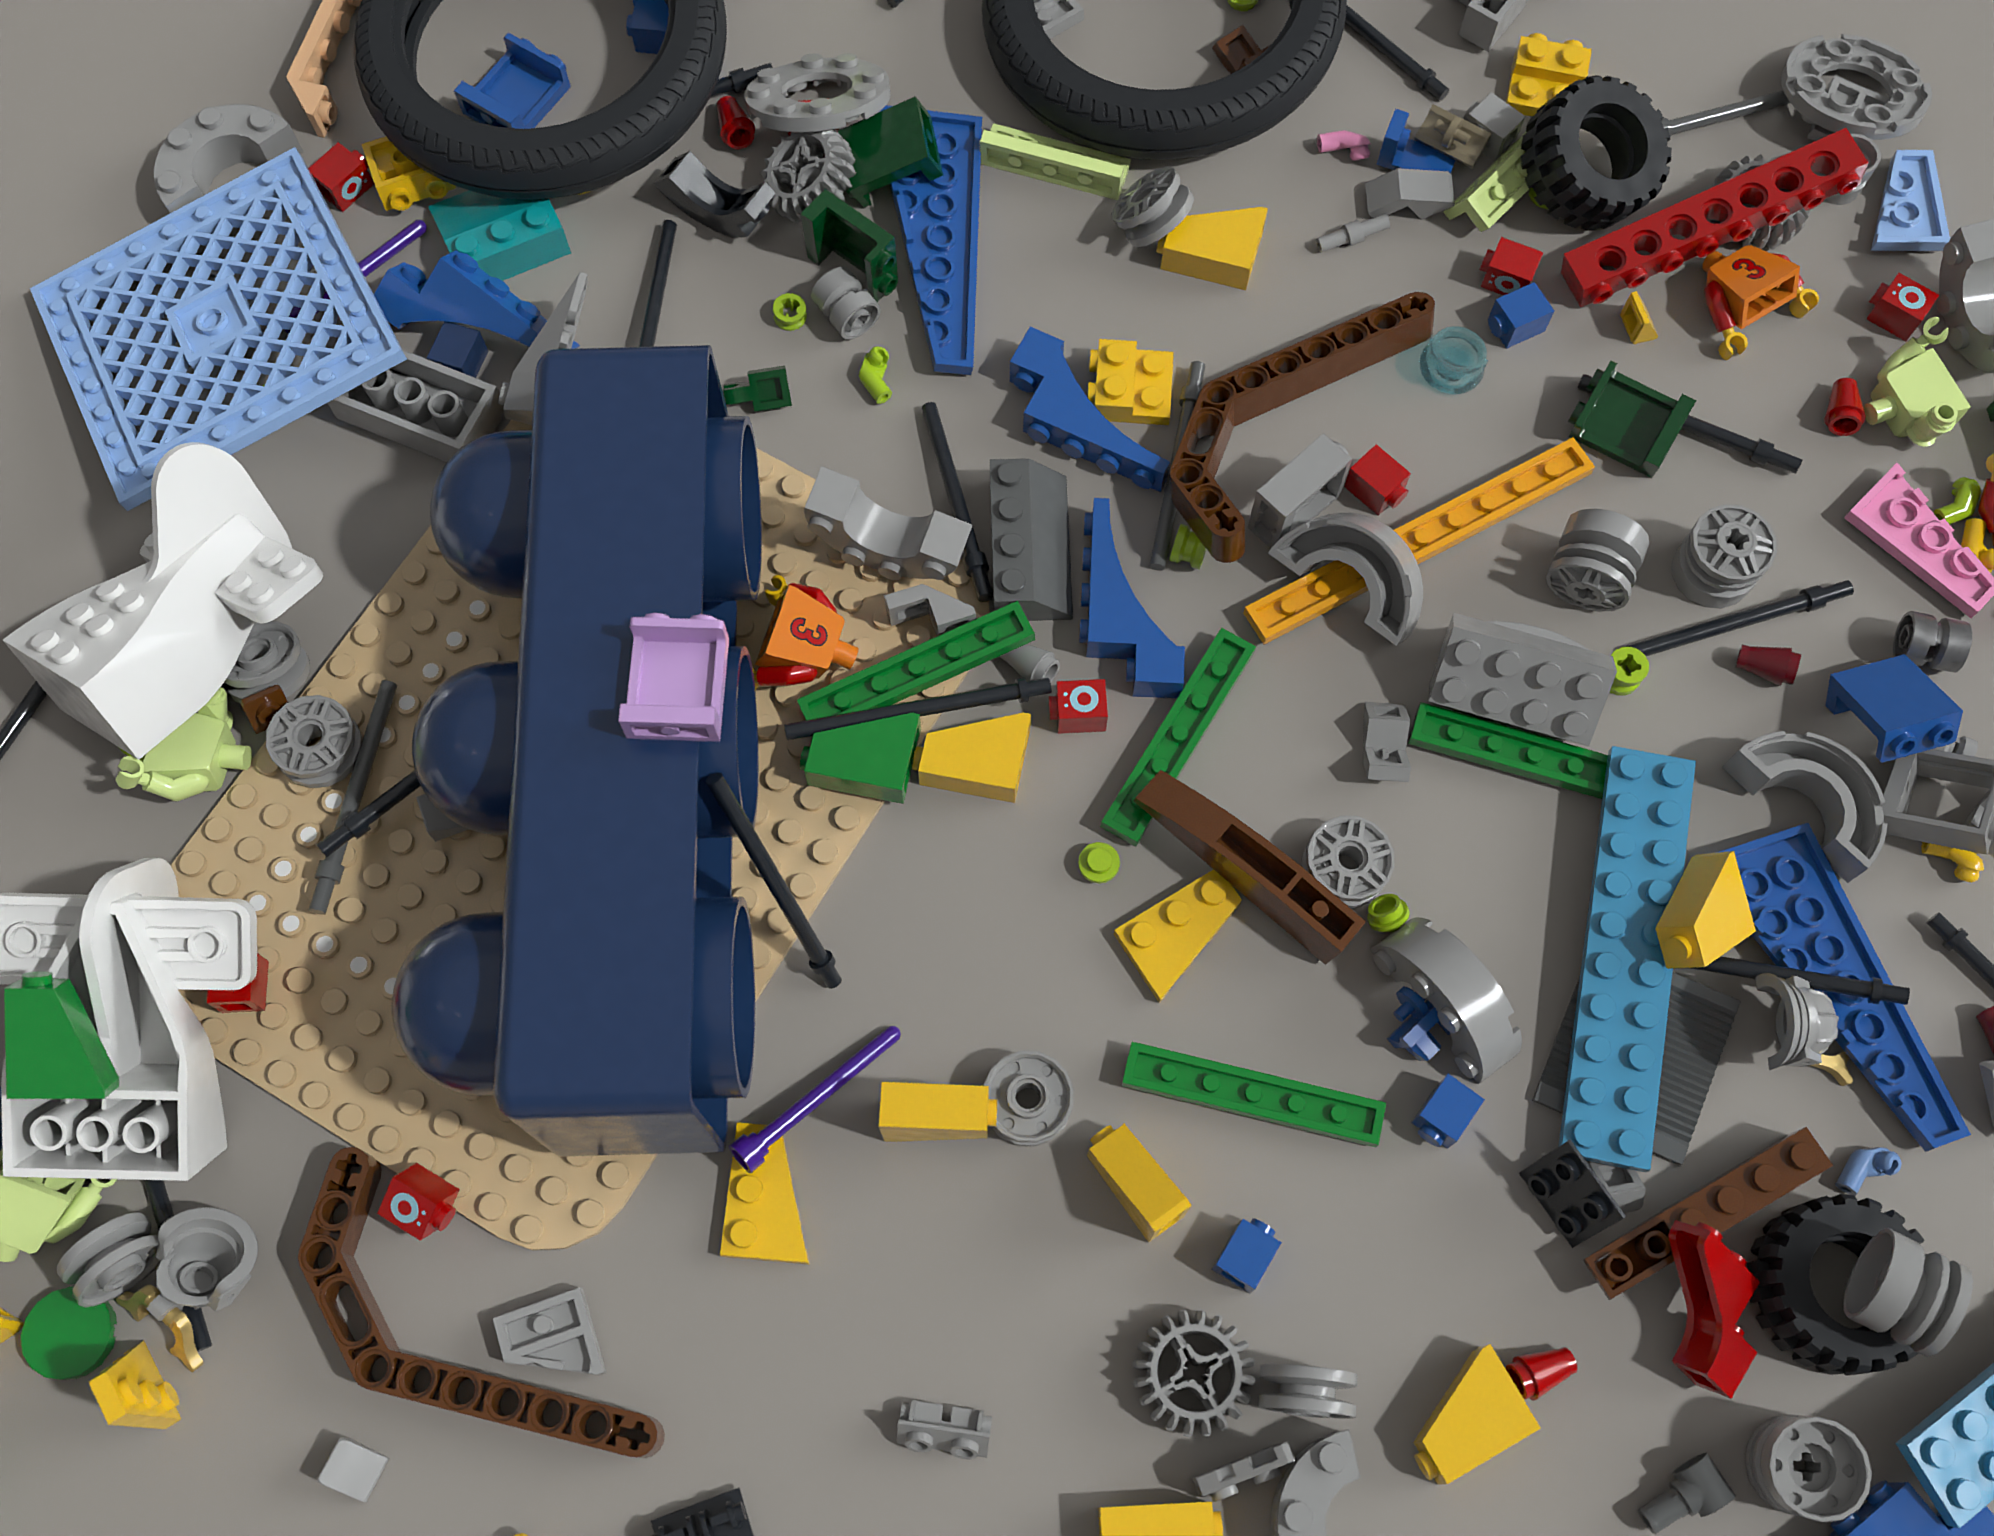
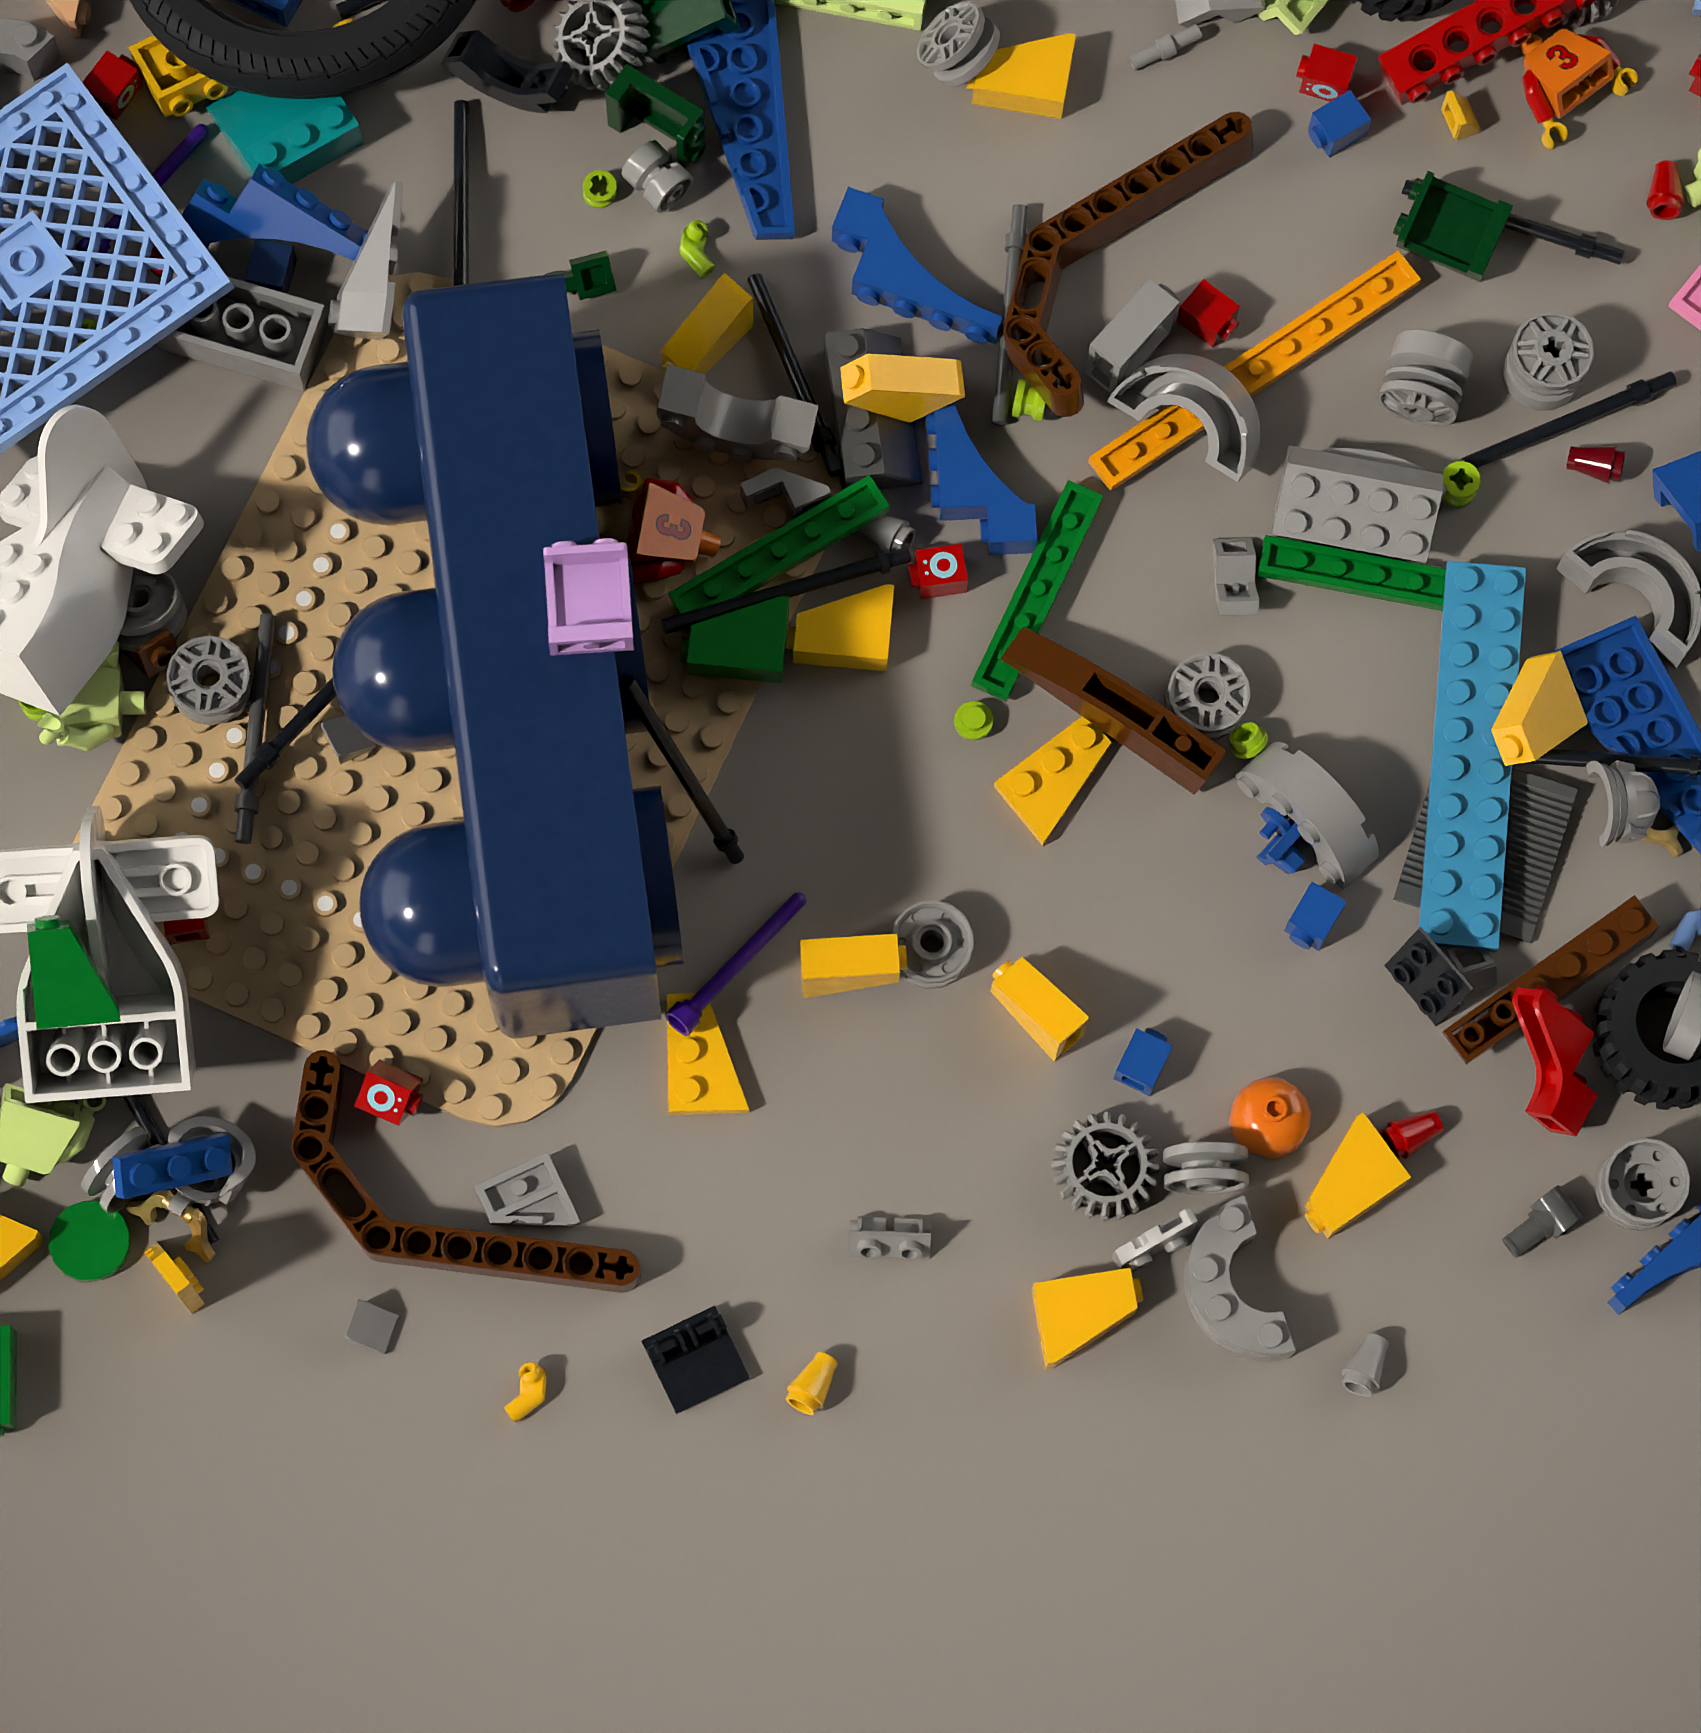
camera: 10 degrees left, 5 degrees up
(153, 1264) = (172, 1165): none -> blue plate
(879, 444) = (711, 328): none -> yellow slope
(1060, 514) = (902, 385): none -> yellow slope
(1131, 382) = (955, 233): yellow plate -> none
(1254, 1094) = (1137, 919): green plate -> none
(1382, 1335) = (1270, 1117): none -> orange cylinder
(1454, 360) = (1276, 178): clear light blue piece -> none

